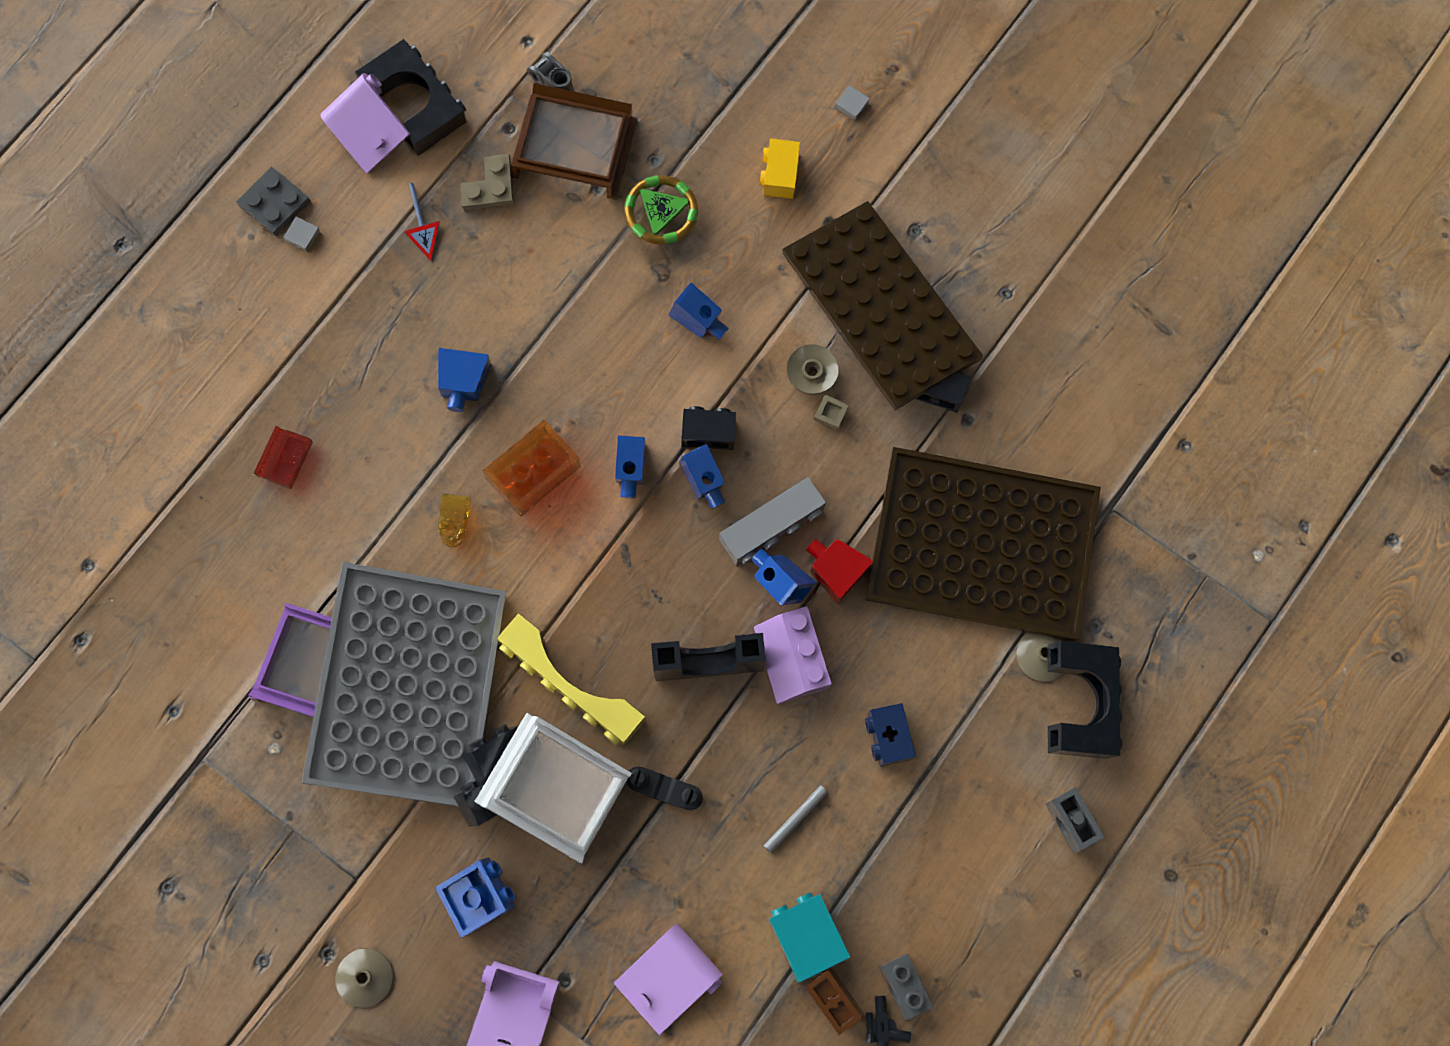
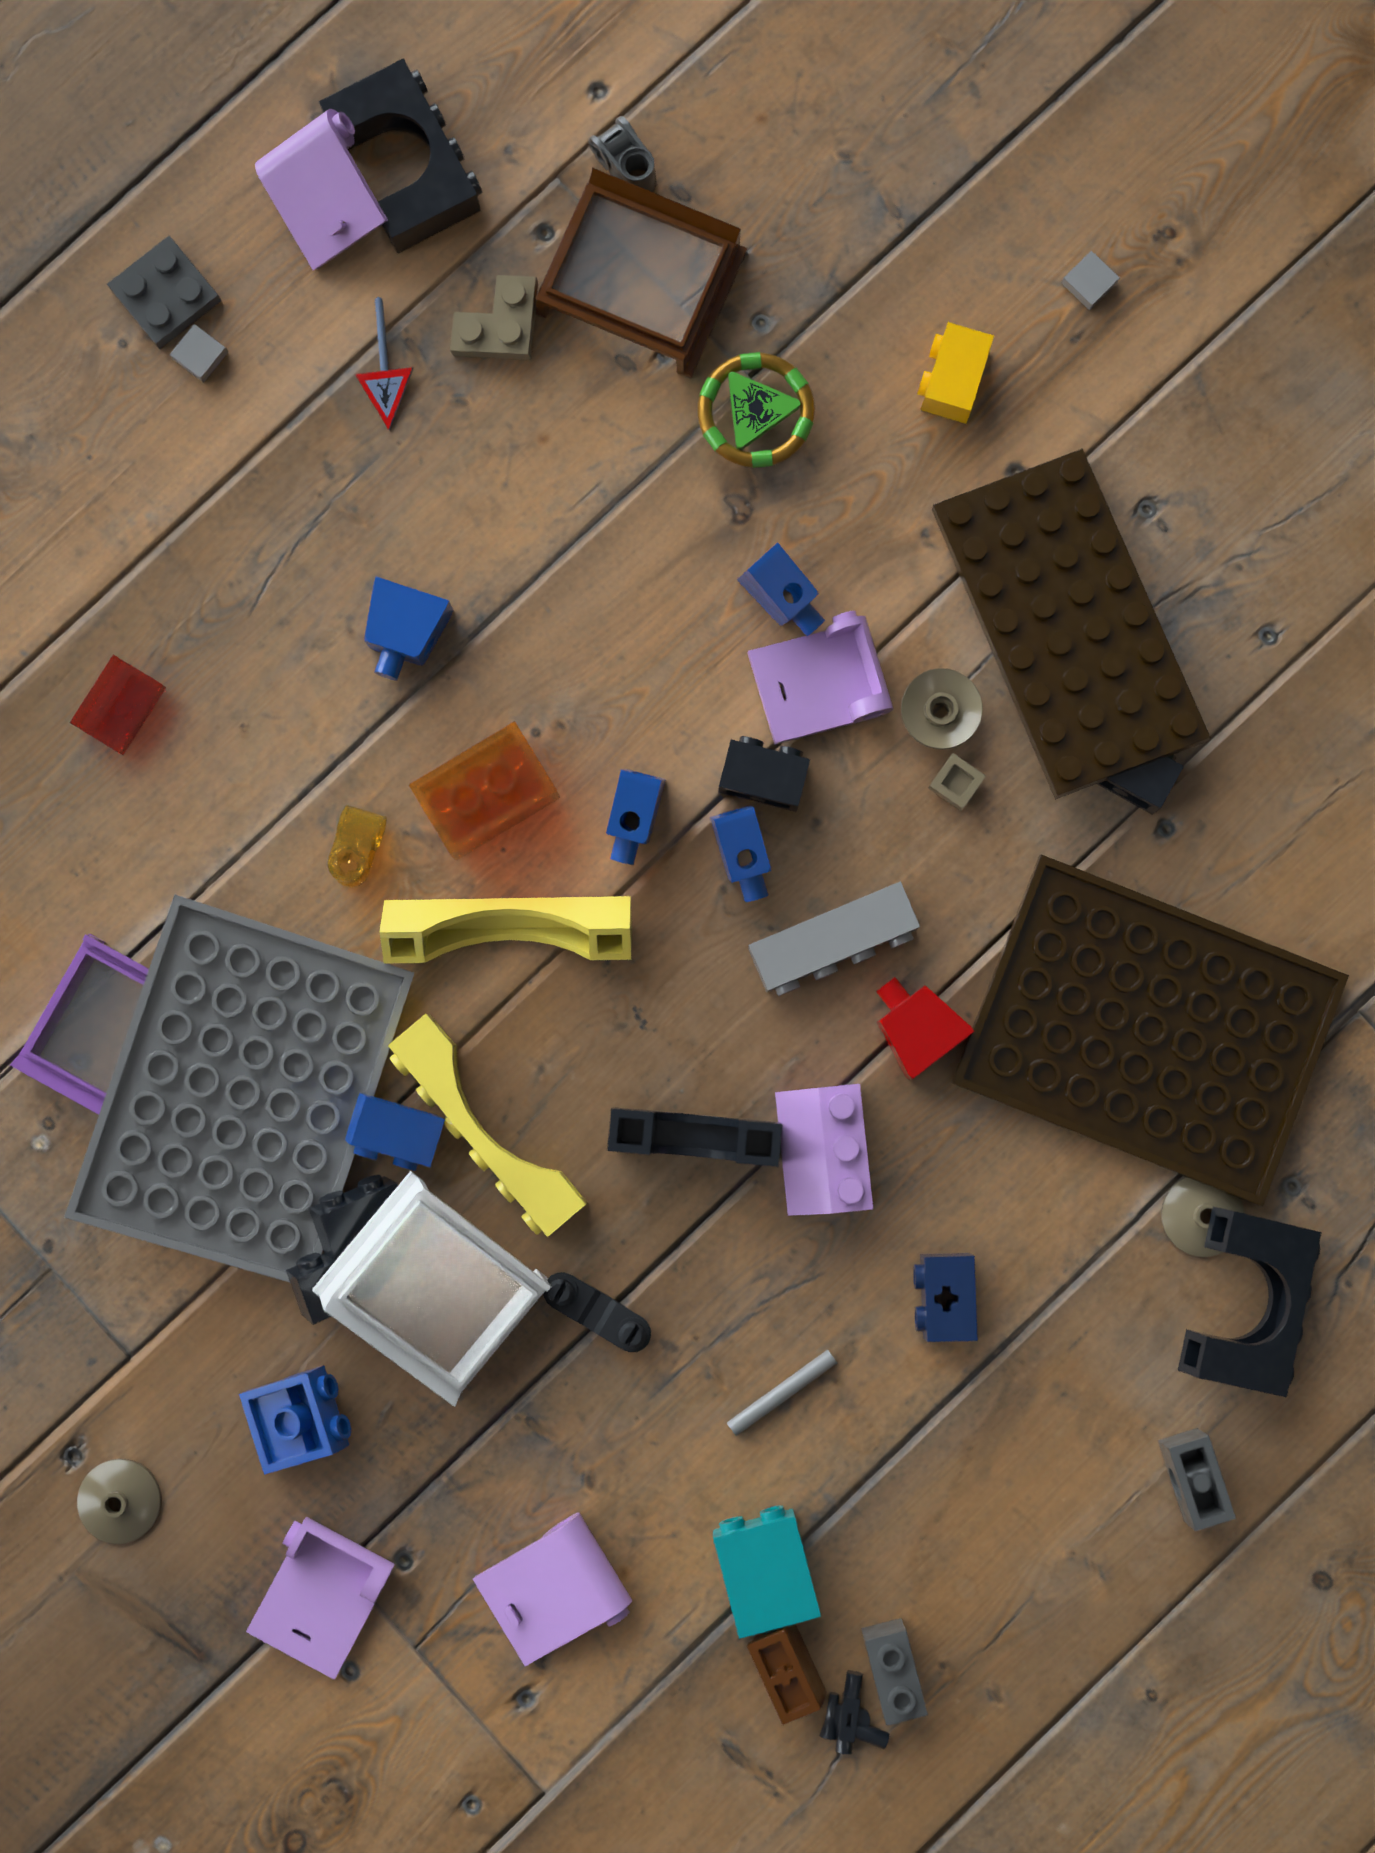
camera: 20 degrees right, 10 degrees up
(510, 693) = (393, 1131): none -> blue brick
(514, 559) = (428, 928): none -> light yellow arch
(735, 364) = (825, 678): none -> lavender door
(782, 578) = (830, 1031): blue torso -> none

